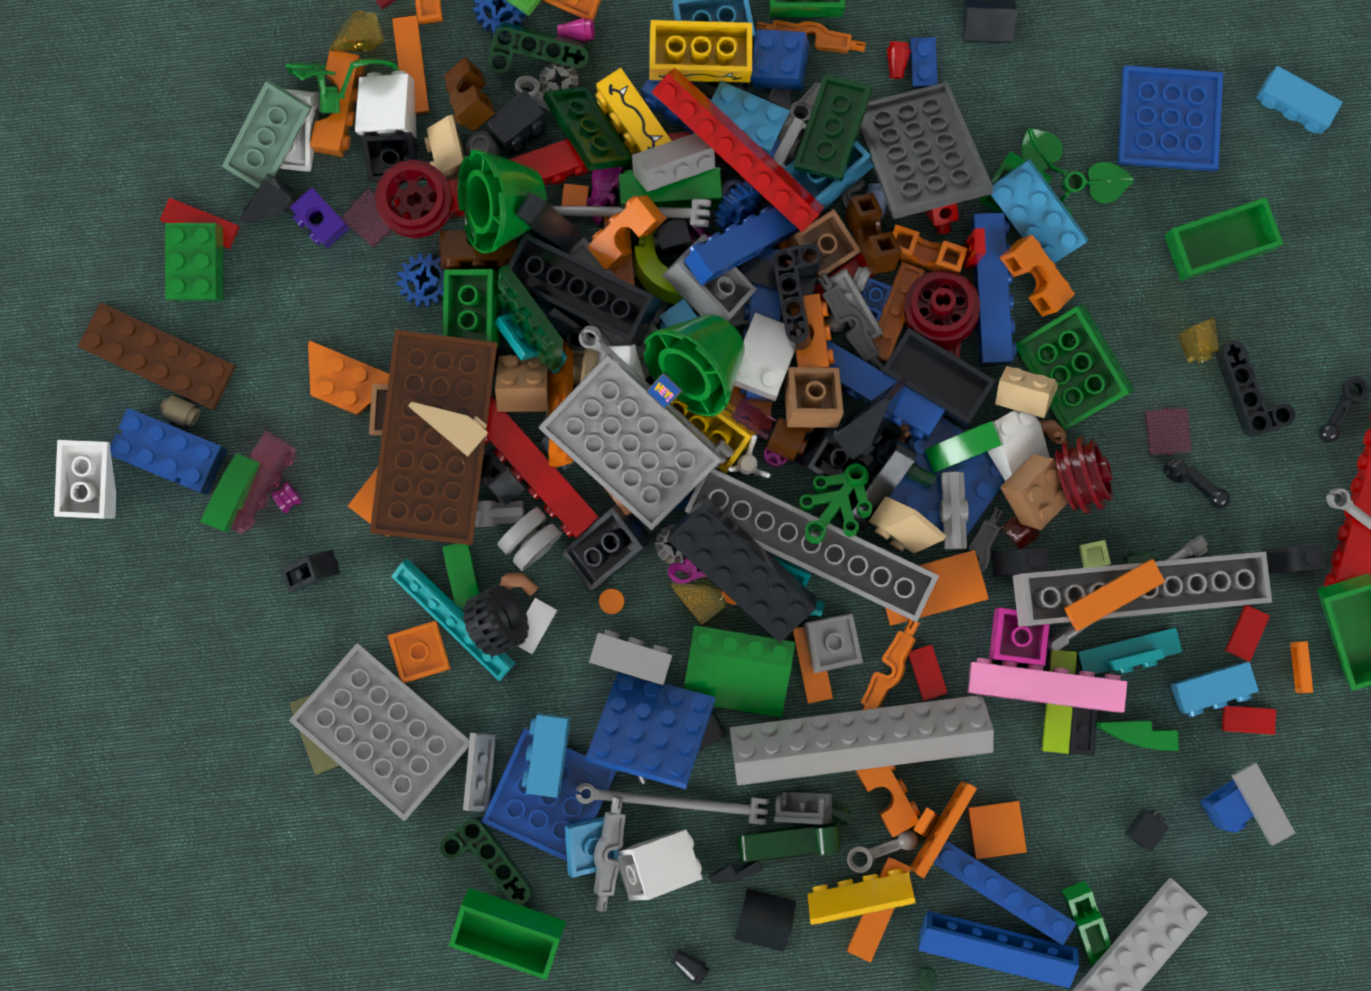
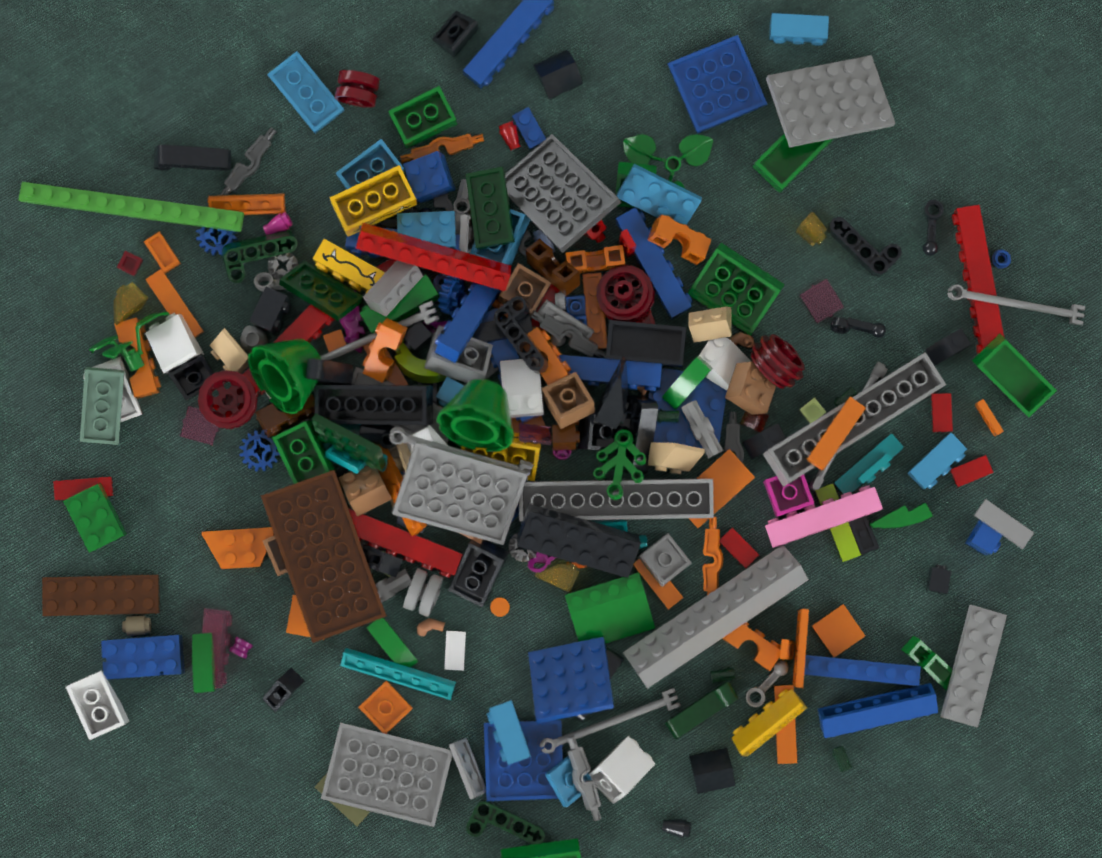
camera: 25 degrees left, 0 degrees up
(268, 200) = (124, 449): black slope -> none
(329, 229) = (153, 444): dark purple brick -> none
(455, 427) = (337, 542): tan slope -> none
(467, 99) = (232, 314): reddish brown arch -> none
(496, 620) = (428, 659): black tyre -> none
(631, 657) = (532, 638): light grey brick -> none
(664, 391) = (465, 447): tile -> none
(728, 874) = (671, 751): black slope -> none
(747, 463) = (546, 466): white plant -> none
(804, 808) = (700, 681): dark grey hinge -> none
(1296, 201) = (830, 101): none -> light grey plate

